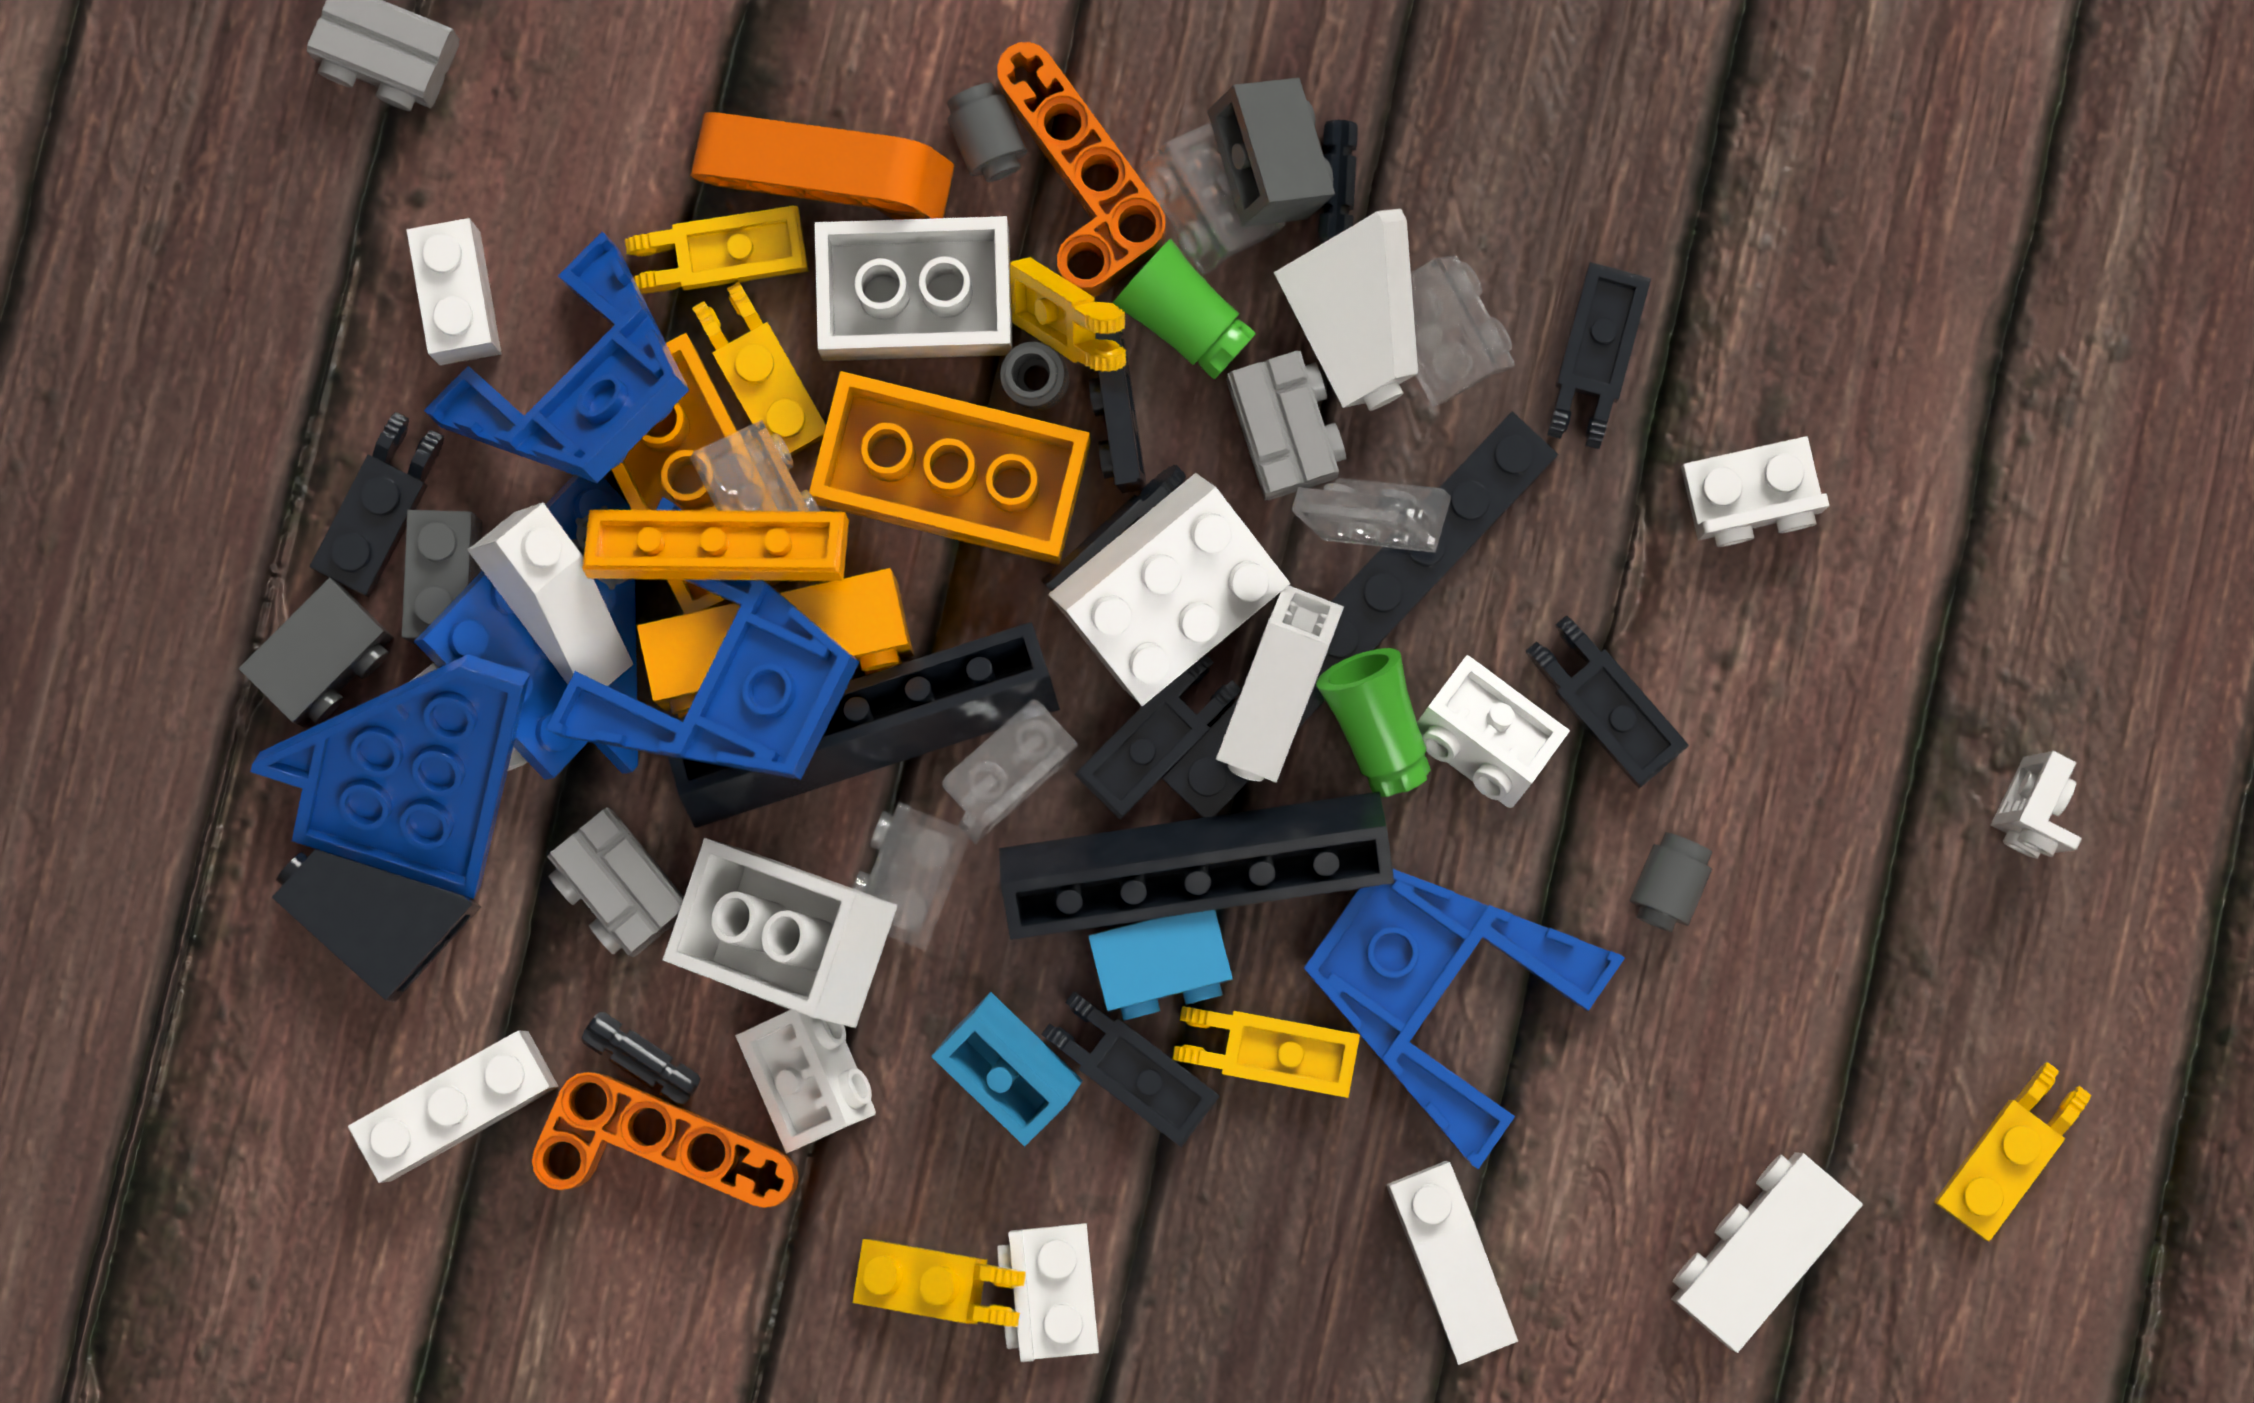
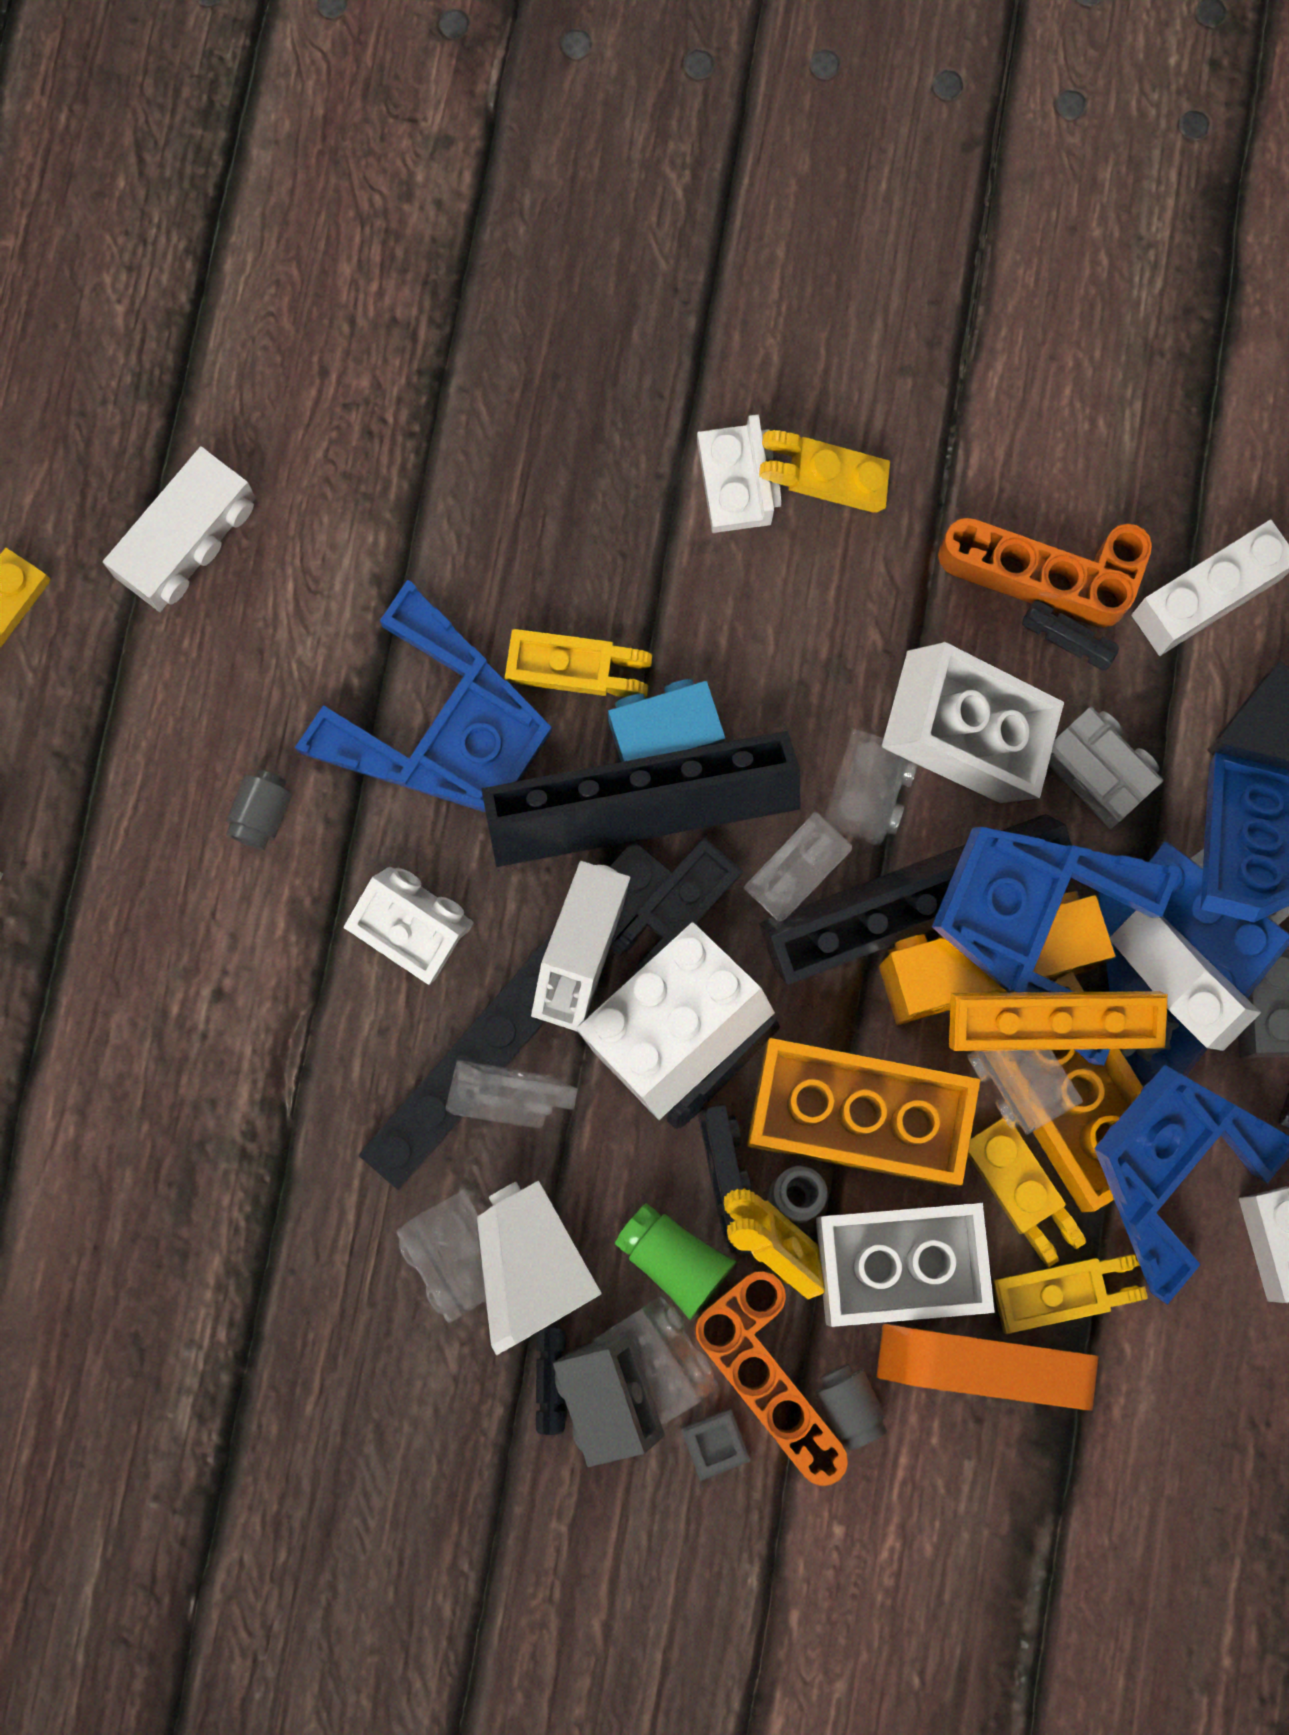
camera: 170 degrees right, 5 degrees down
(806, 1077) = (937, 612): white bracket -> none
(1007, 1069) = (782, 634): dark azure brick -> none
(1137, 1073) = (681, 642): black hinge -> none
(1148, 101) = (715, 1444): none -> dark grey tile
(1284, 424) = (586, 1167): light grey brick -> none
(1377, 719) = (500, 925): bright green plant -> none
(1452, 1261) = (428, 516): white slope -> none
(1599, 346) = (326, 1248): black hinge -> none
(1611, 706) = (309, 948): black hinge -> none
(1754, 490) = (195, 1132): white bracket -> none

